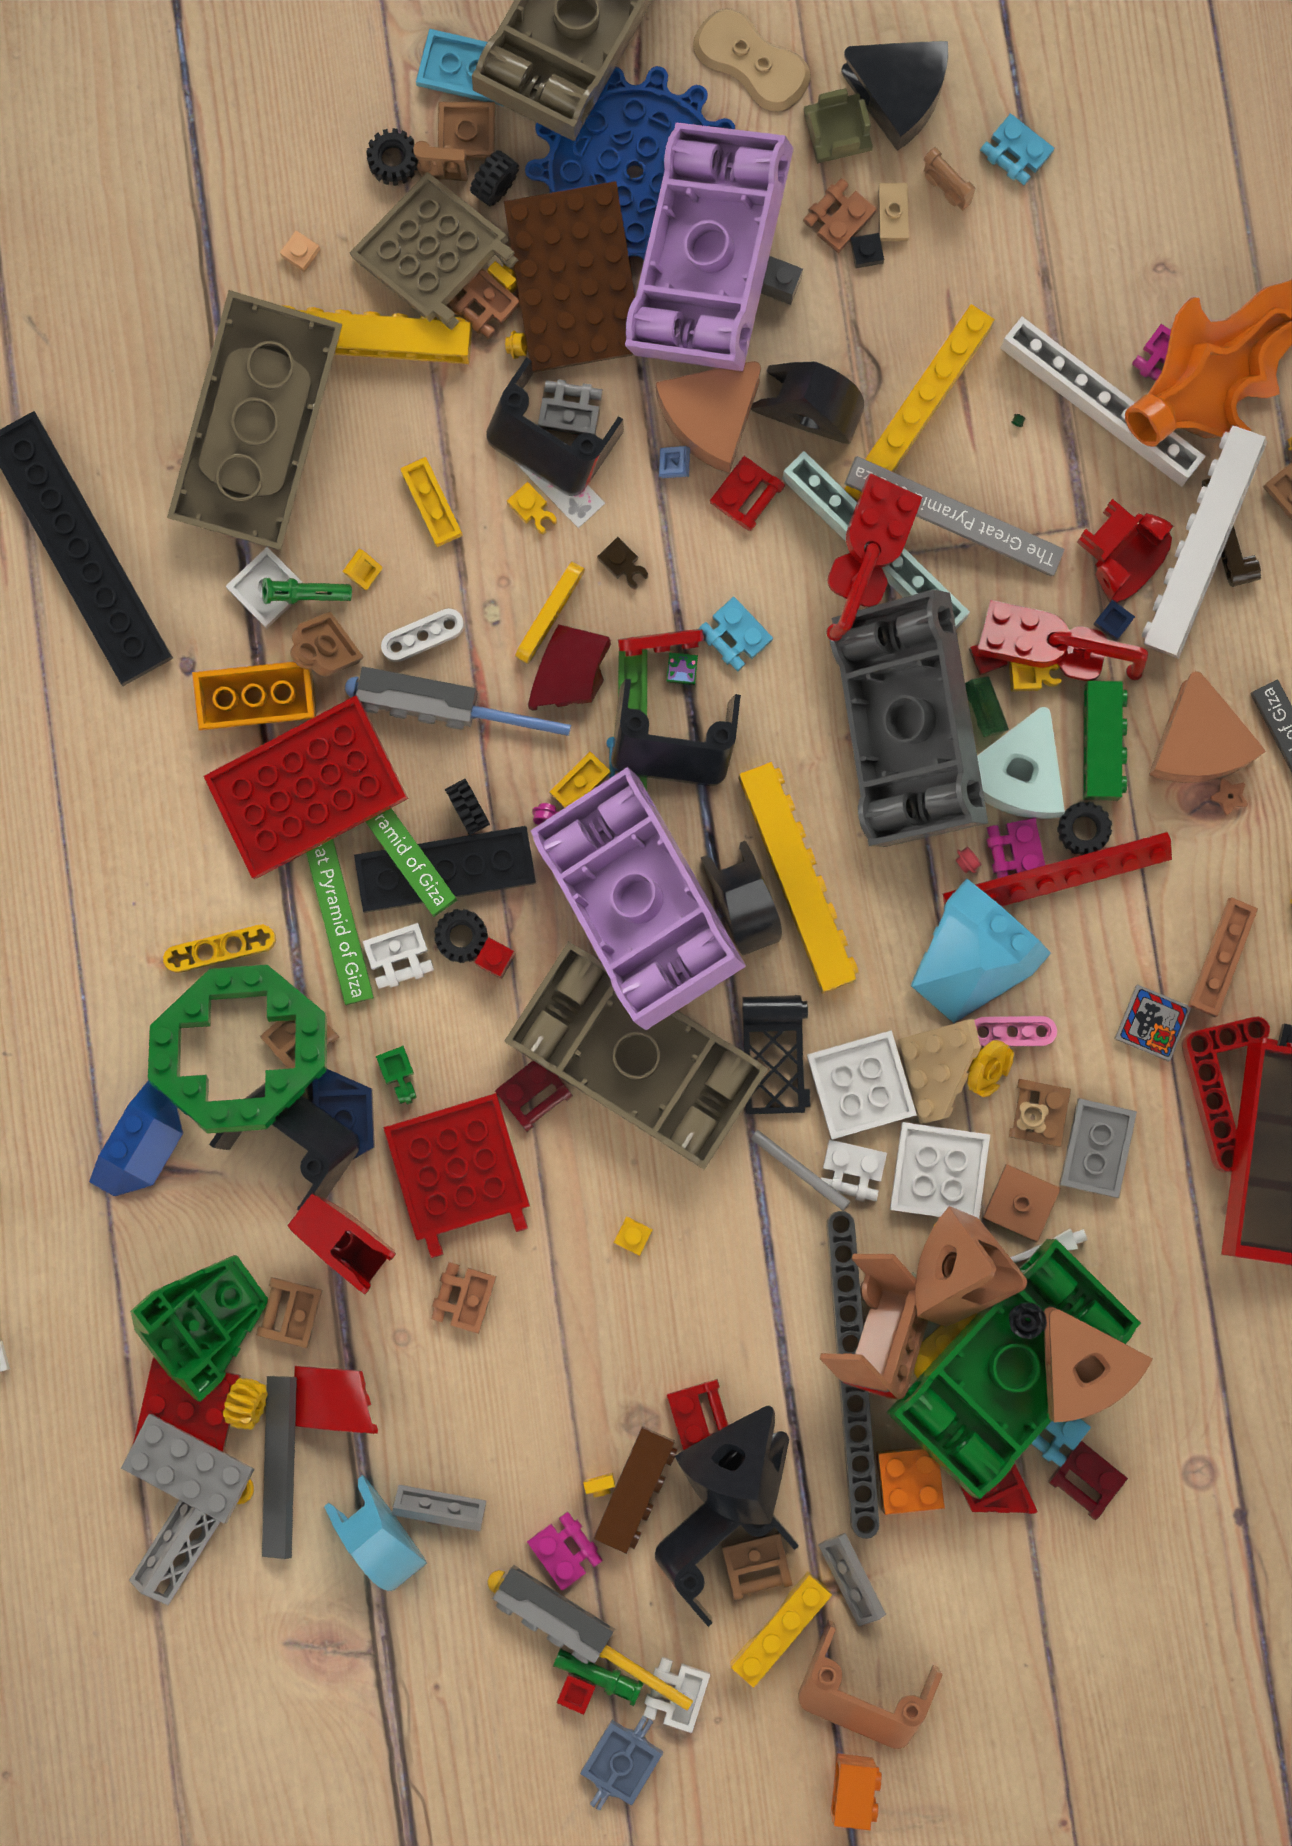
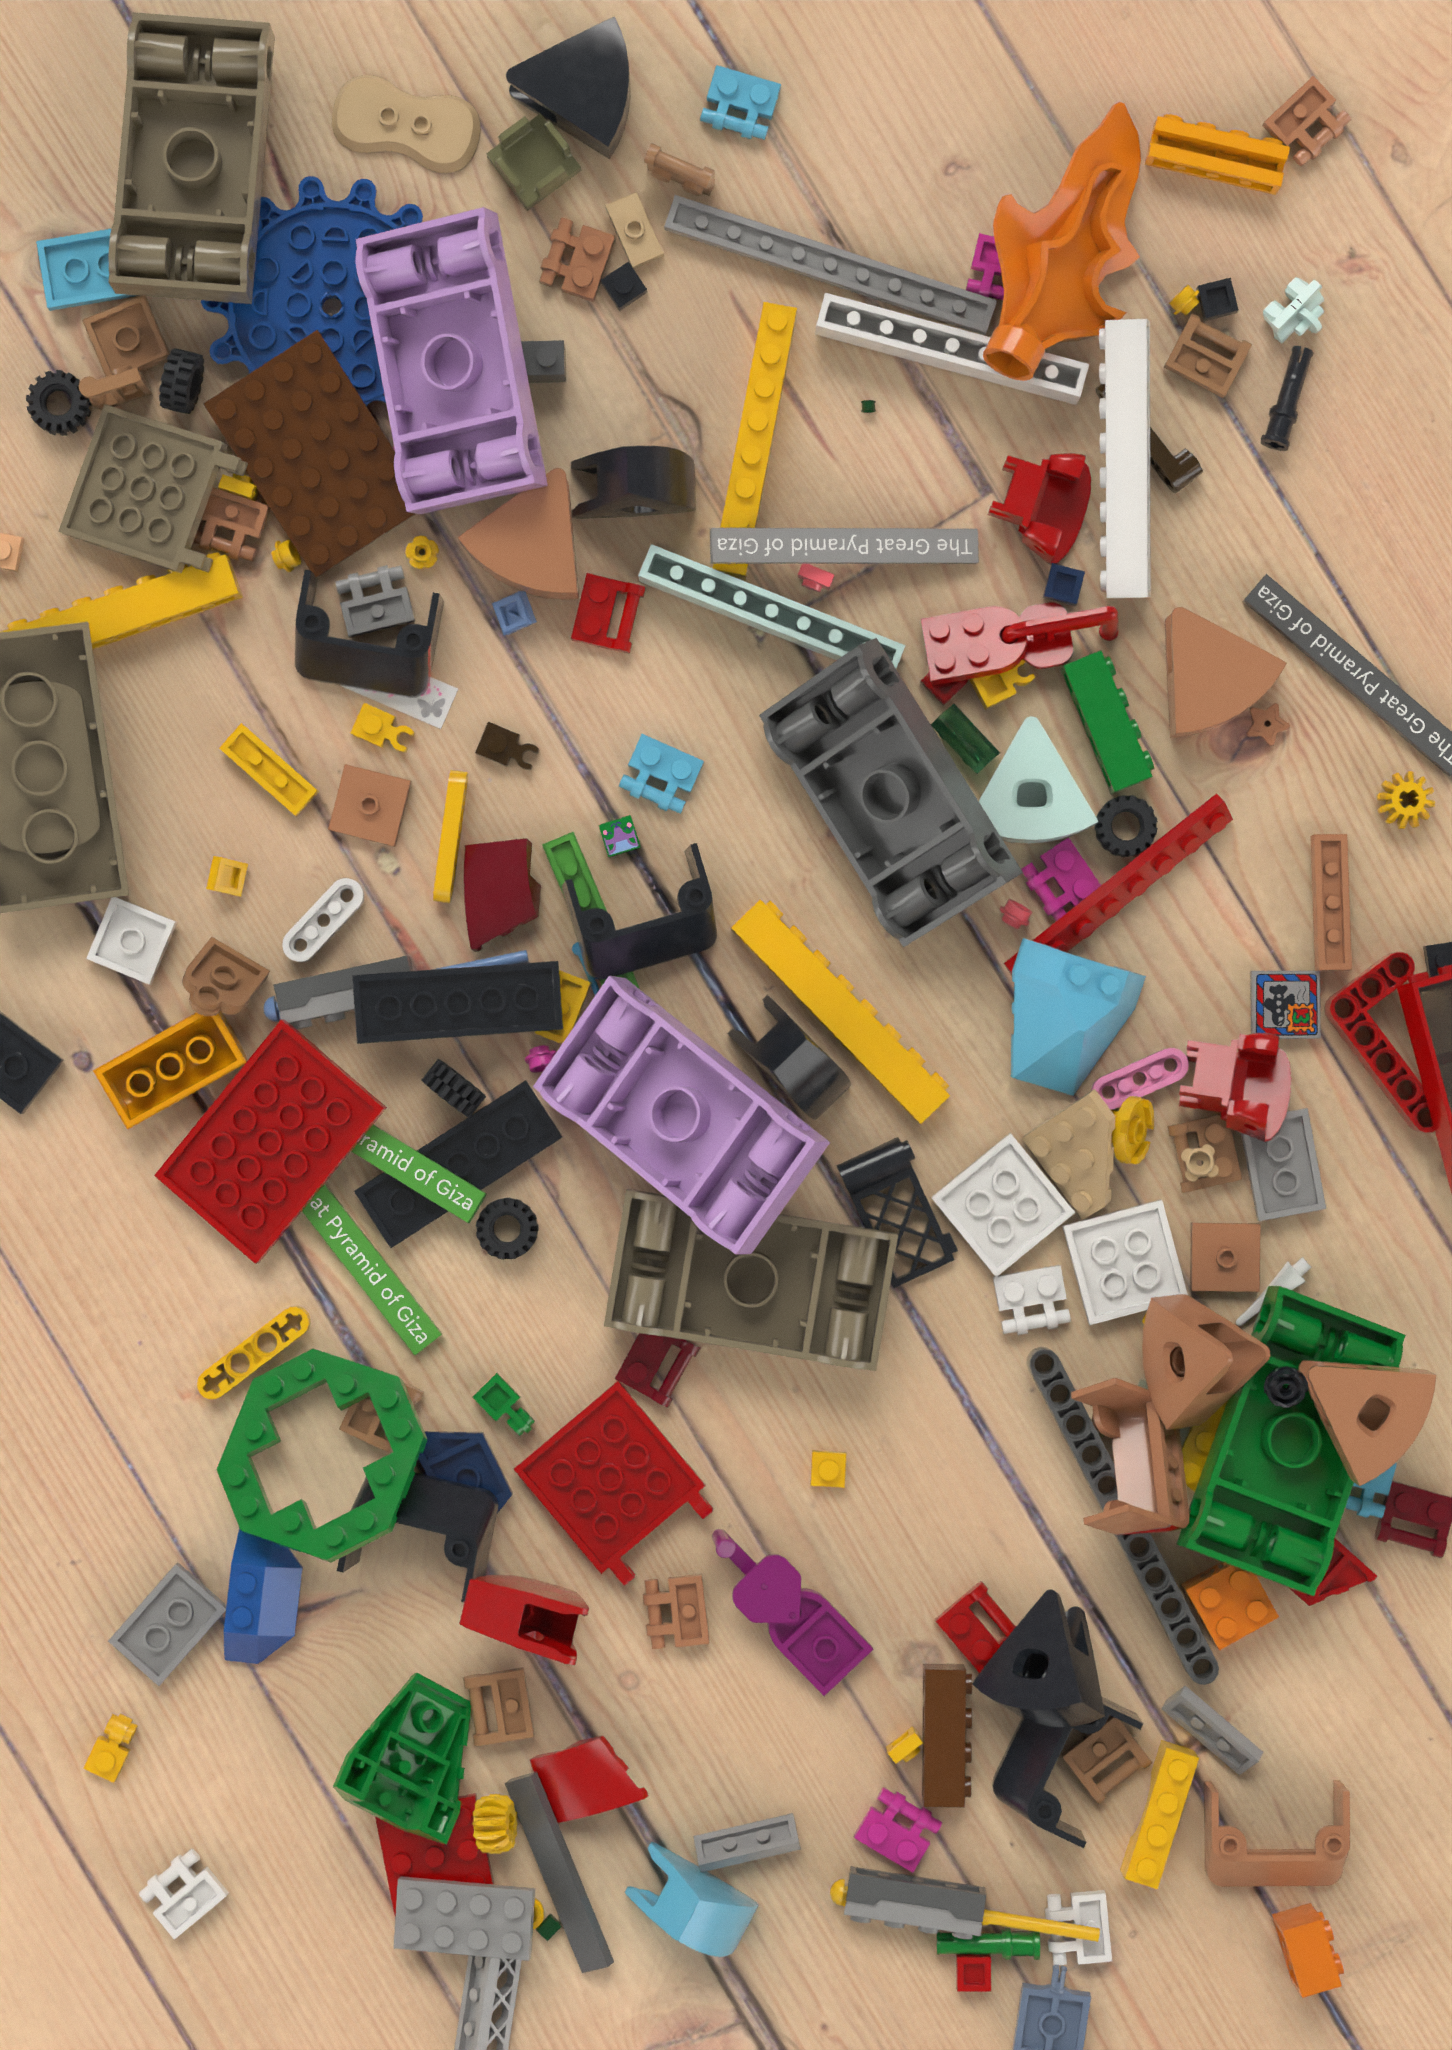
camera: 25 degrees left, 5 degrees up
(57, 1133) = (168, 1624): none -> light grey plate
(251, 1508) = (549, 1927): none -> dark green piece
(293, 591) = (162, 934): green pin -> none
(394, 947) = (441, 1271): white plate -> none
(495, 958) = (554, 1237): red brick -> none
(497, 562) = (369, 805): none -> nougat plate
(499, 740) = (457, 1002): none -> black plate
(557, 1344) = (797, 1618): none -> magenta plate
(619, 393) = (431, 551): none -> yellow plate
(661, 642) = (584, 818): red plate -> none
(800, 1170) = (976, 1324): light grey bar -> none
(884, 523) = (770, 588): red plate -> none
(922, 533) = (815, 578): none -> coral plate
(1034, 299) = (830, 265): none -> light grey plate
(1093, 1073) = (1244, 1085): none -> piece

